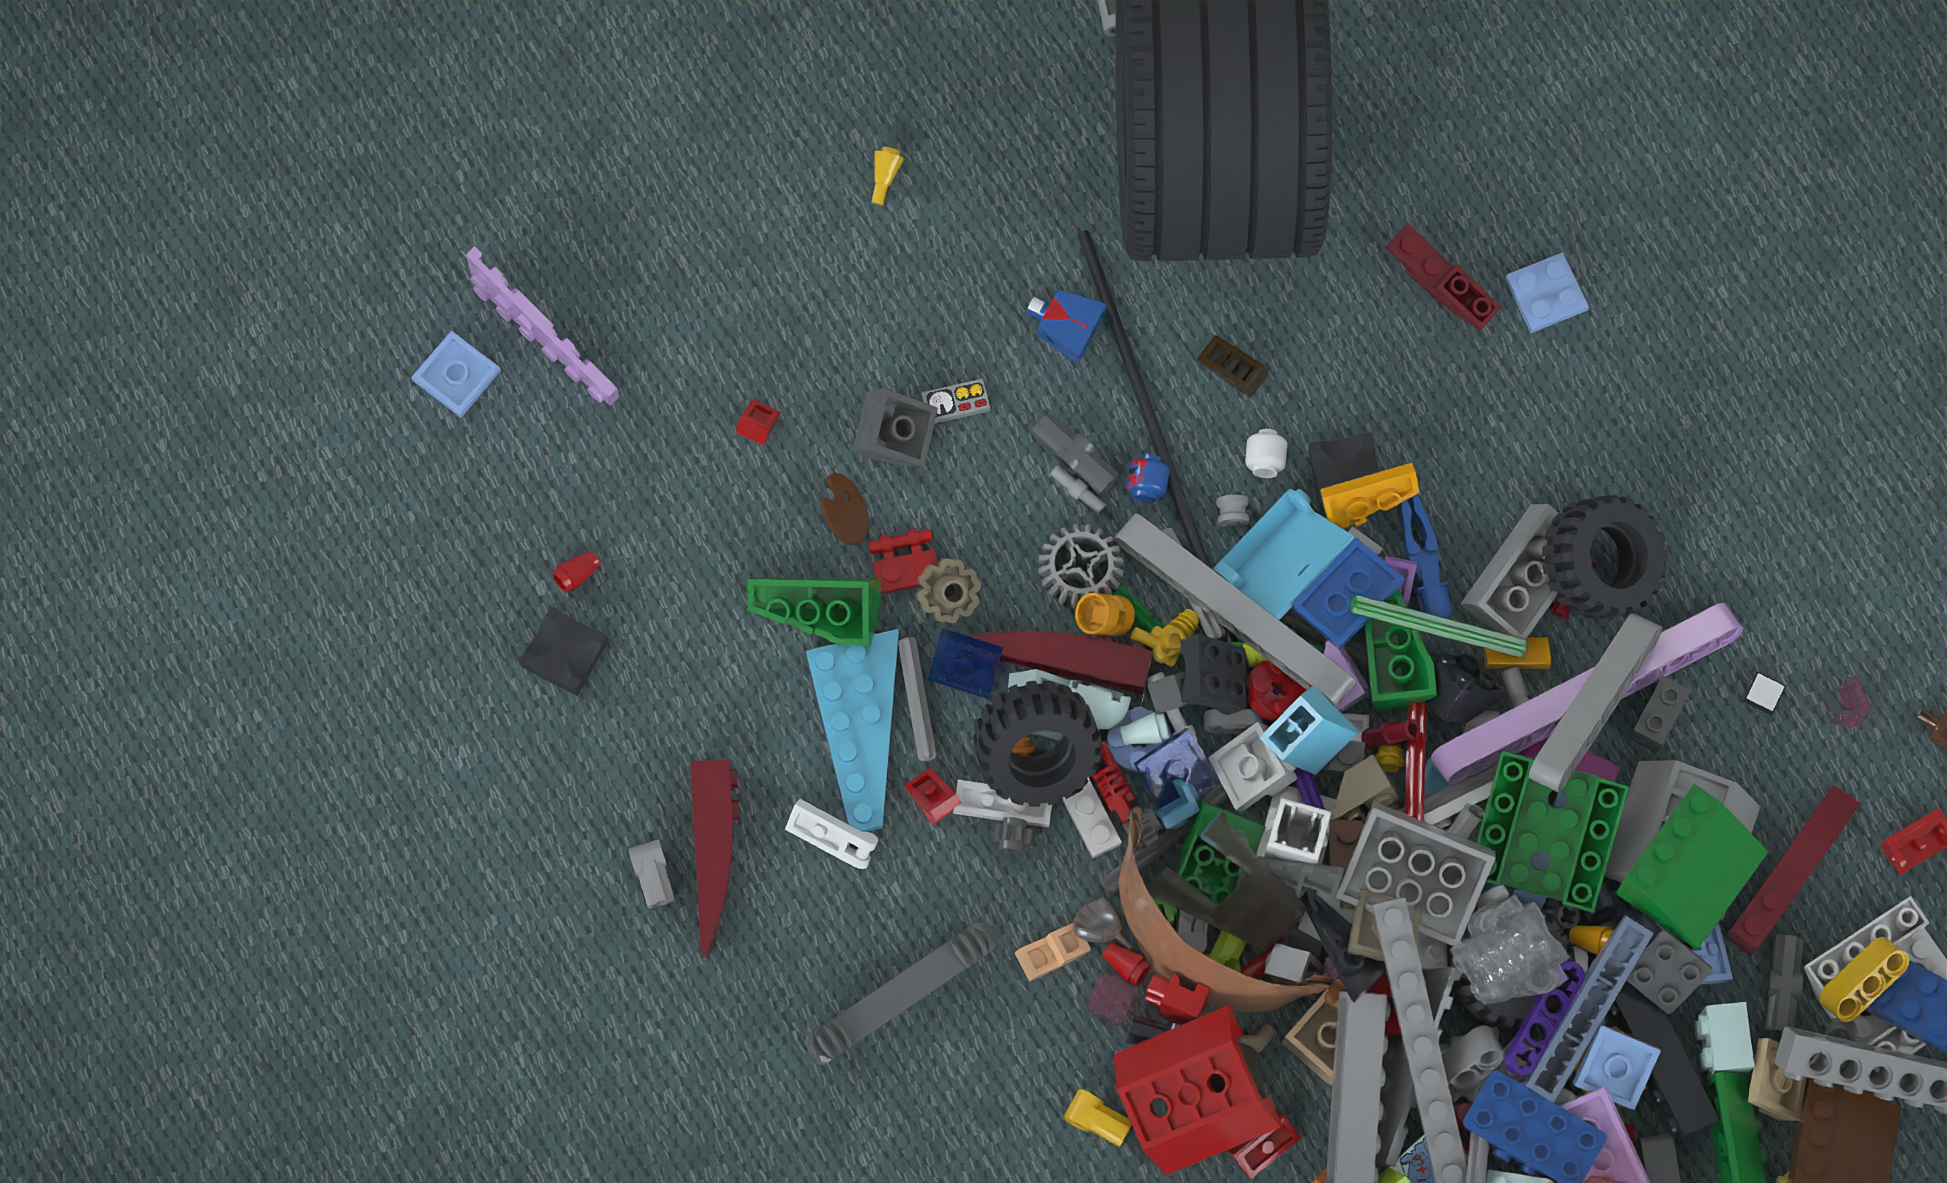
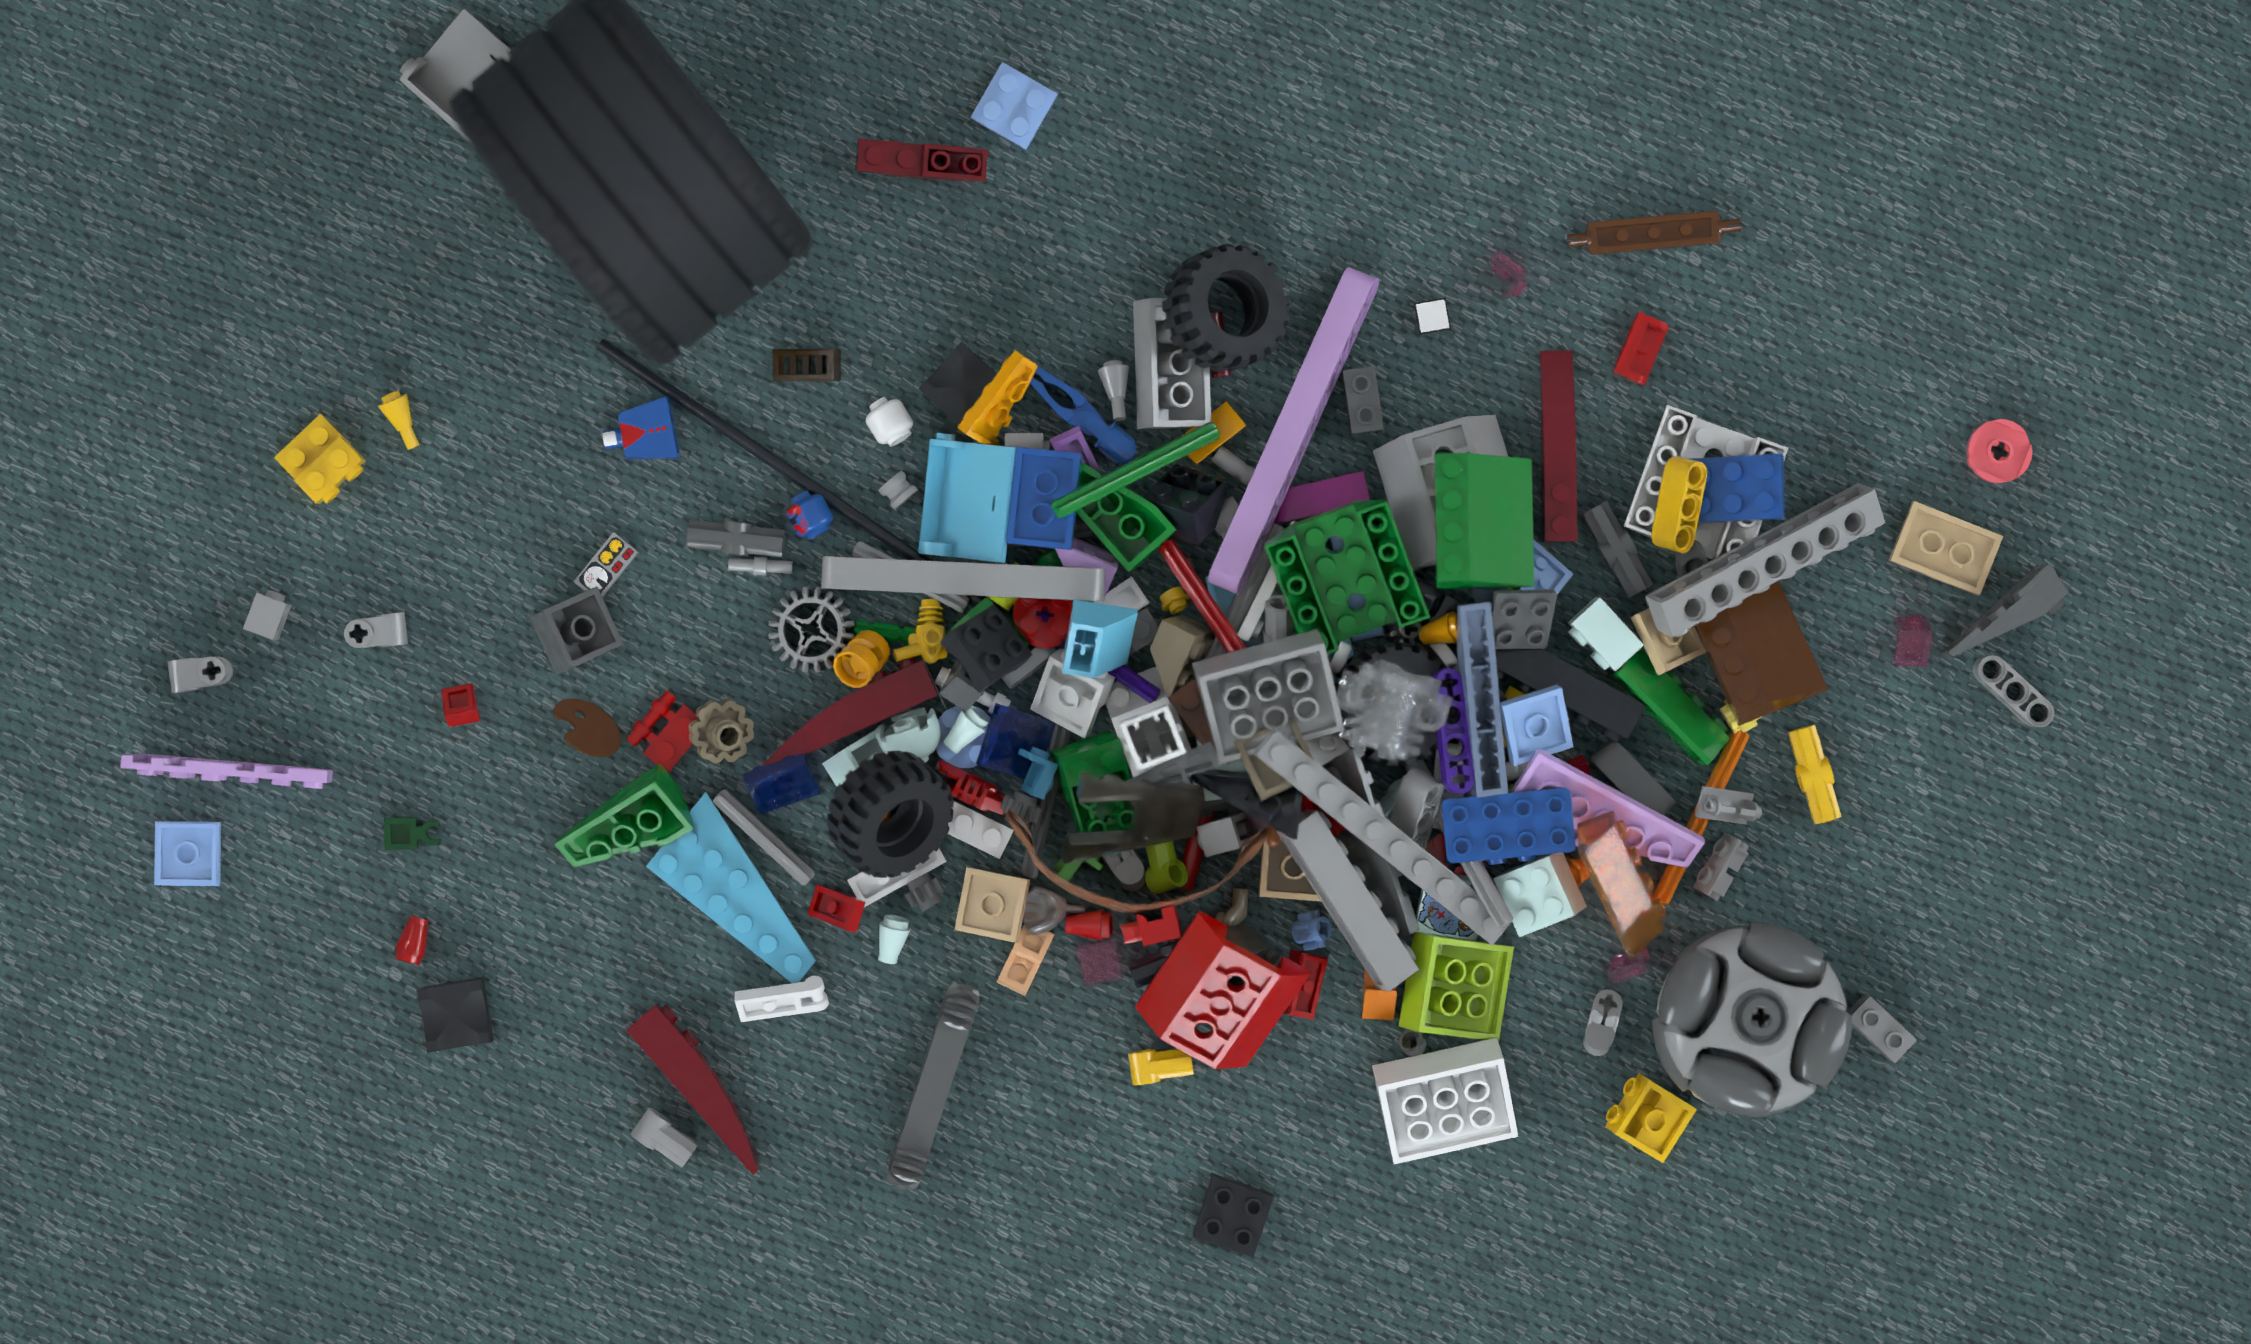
camera: 35 degrees left, 15 degrees up
(571, 243) = (194, 673): none -> light grey piece
(638, 484) = (404, 833): none -> dark green plate
(664, 242) = (268, 615): none -> light grey brick
(742, 319) = (382, 631): none -> light grey piece
(798, 160) = (320, 460): none -> yellow plate
(958, 853) = (892, 936): none -> light aqua cone
(1059, 886) = (992, 904): none -> tan plate
(1305, 1102) = (1311, 930): none -> medium blue gear
(1390, 733) = (1161, 584): dark red pin -> none
(1471, 552) = (1114, 379): none -> light grey cone
(1595, 702) = (1308, 442): light grey beam -> none

